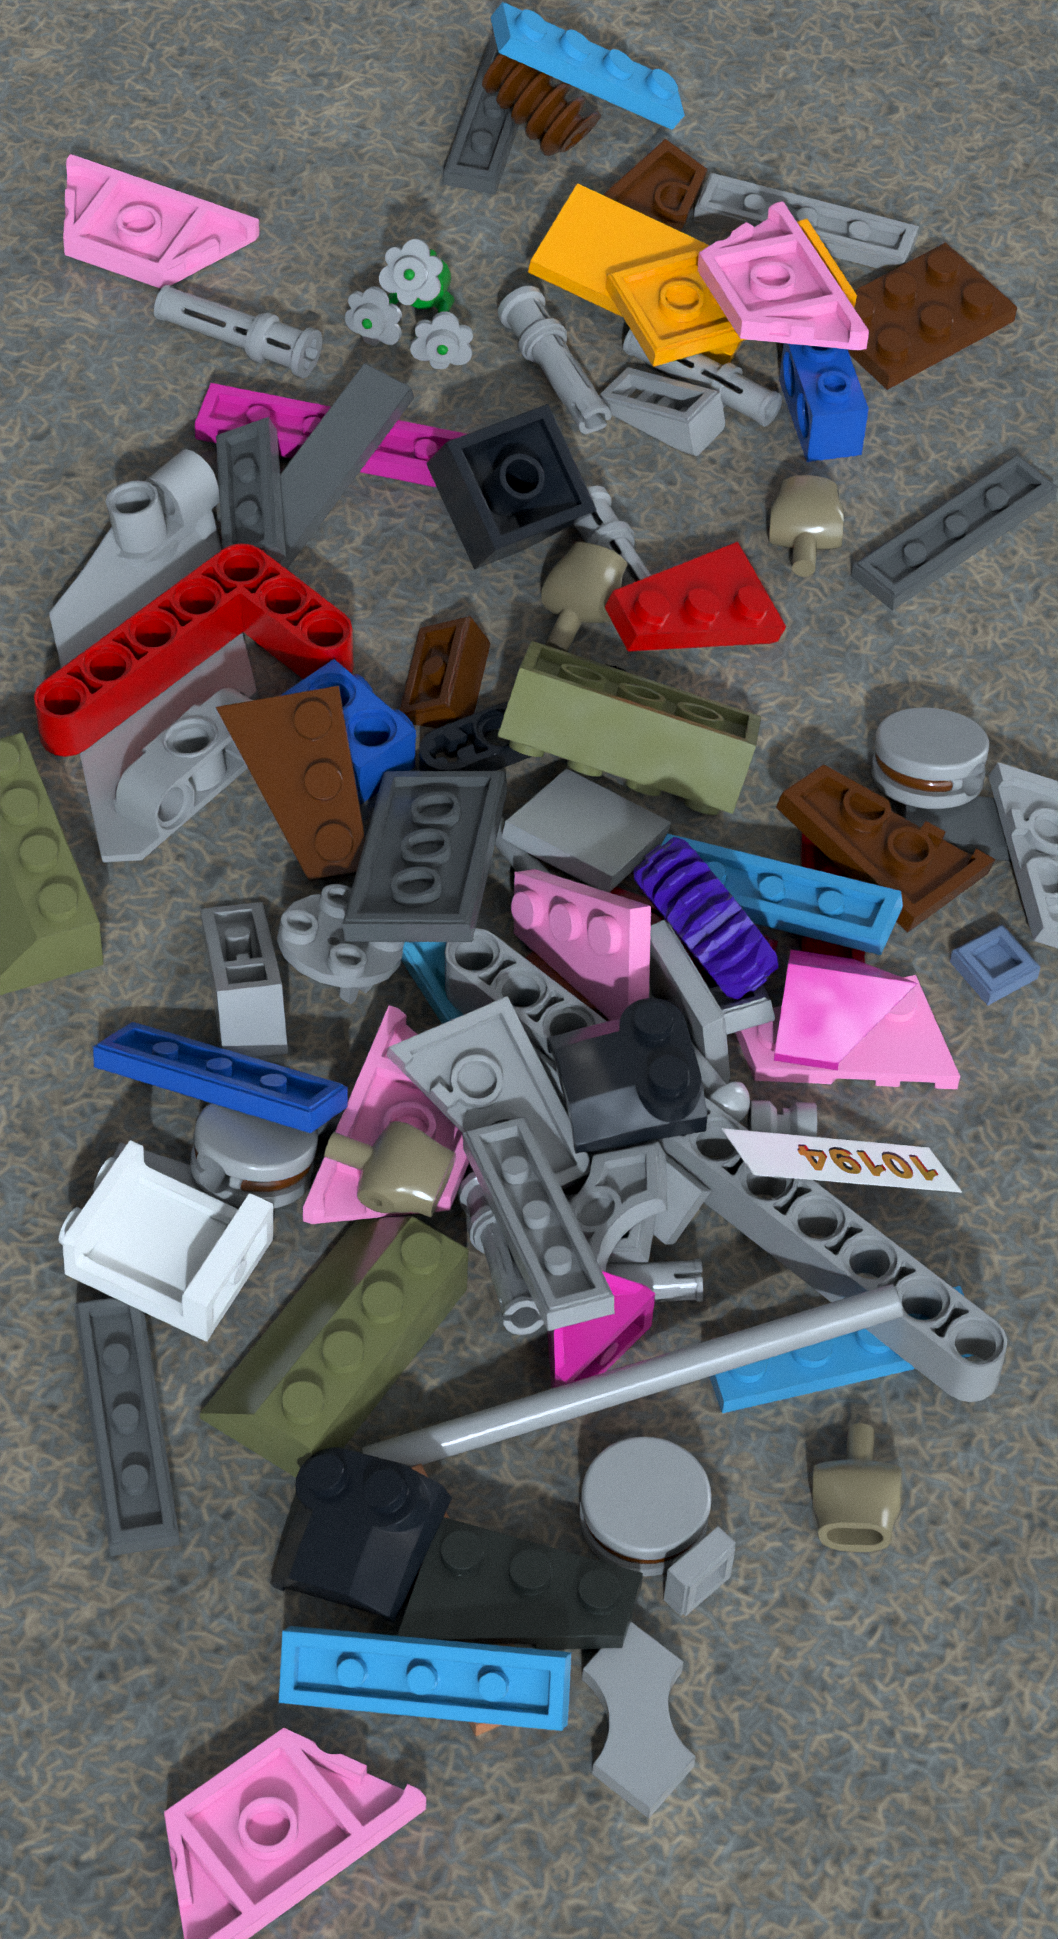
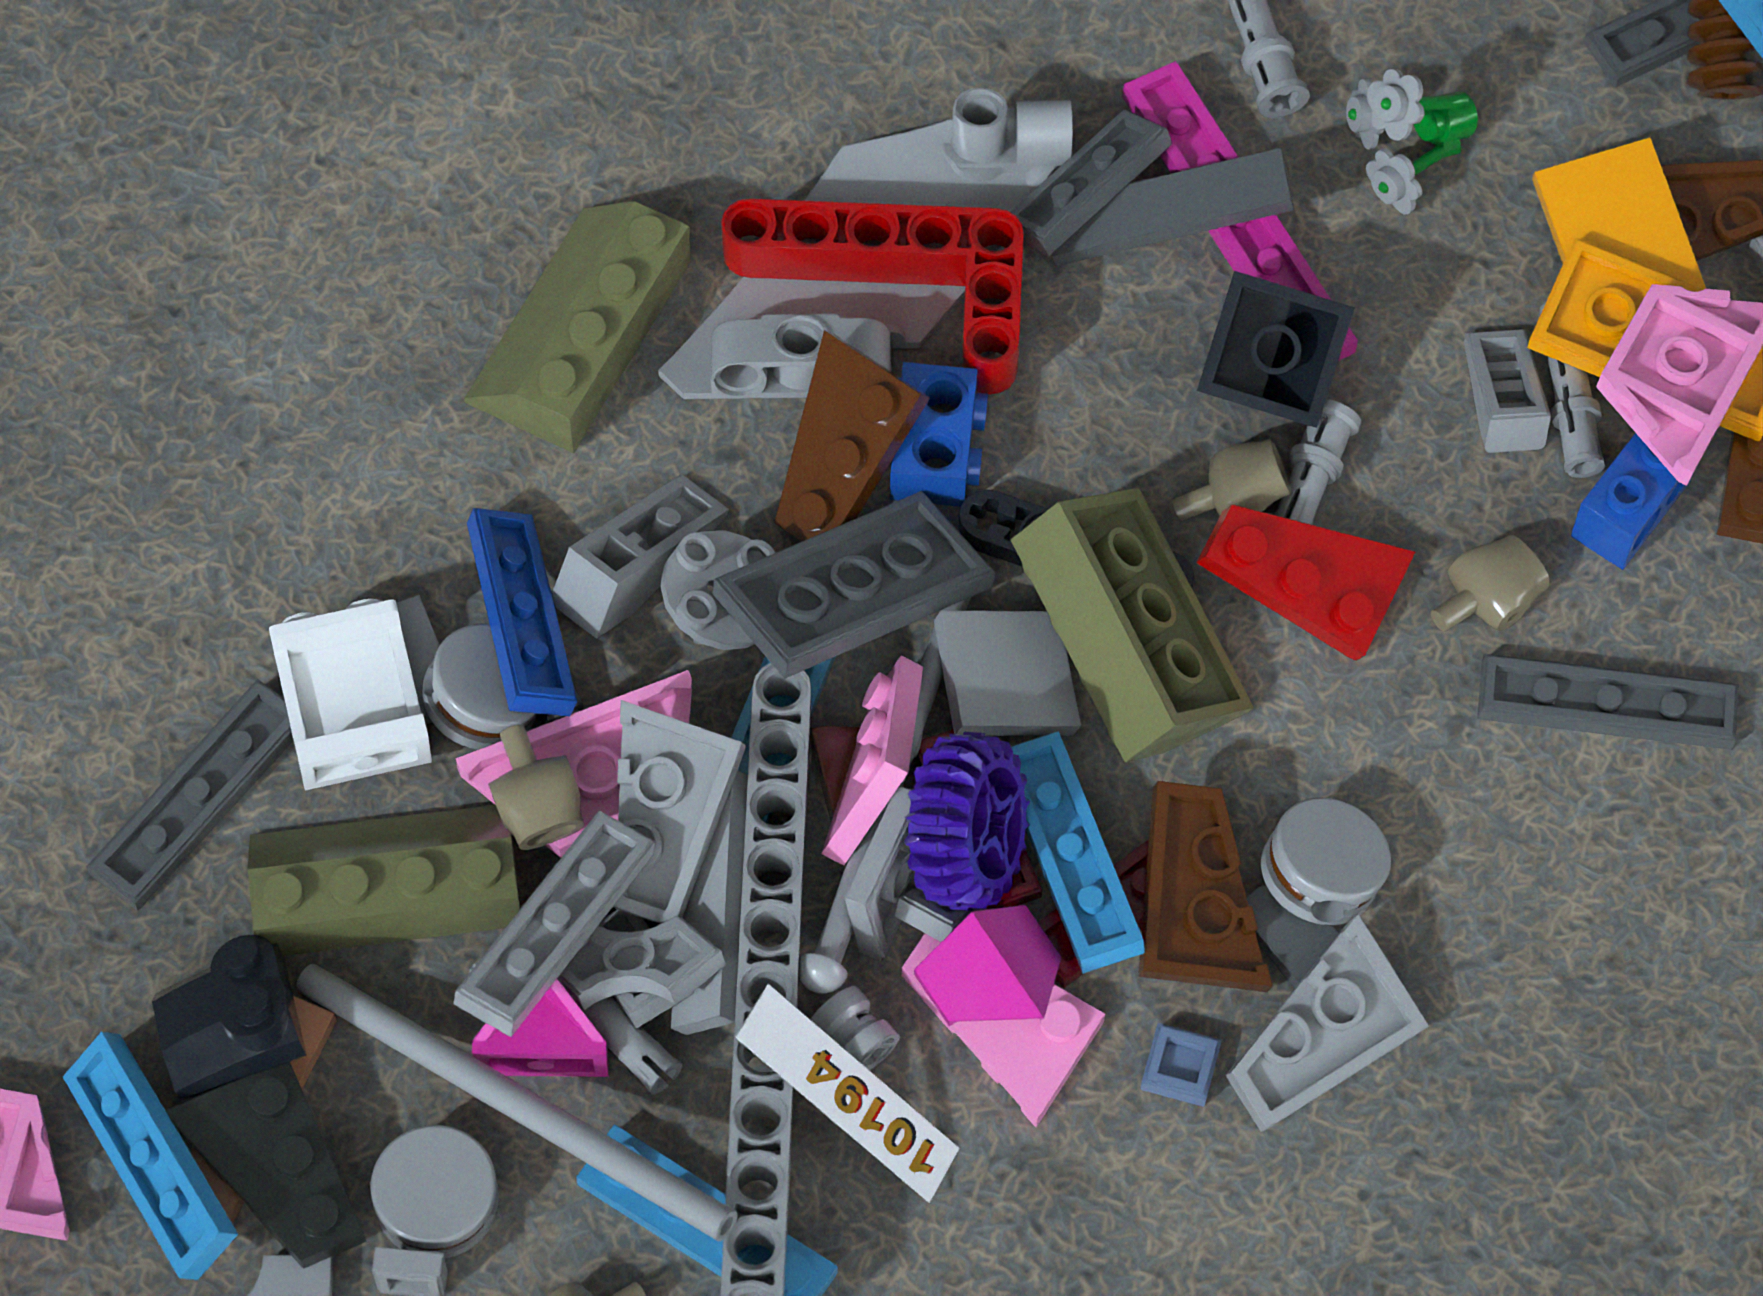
camera: 50 degrees right, 10 degrees up
(445, 673) = (1070, 456): reddish brown slope -> none
(544, 343) = (1477, 252): light grey pin -> none
(630, 1078) = (754, 883): black slope -> none

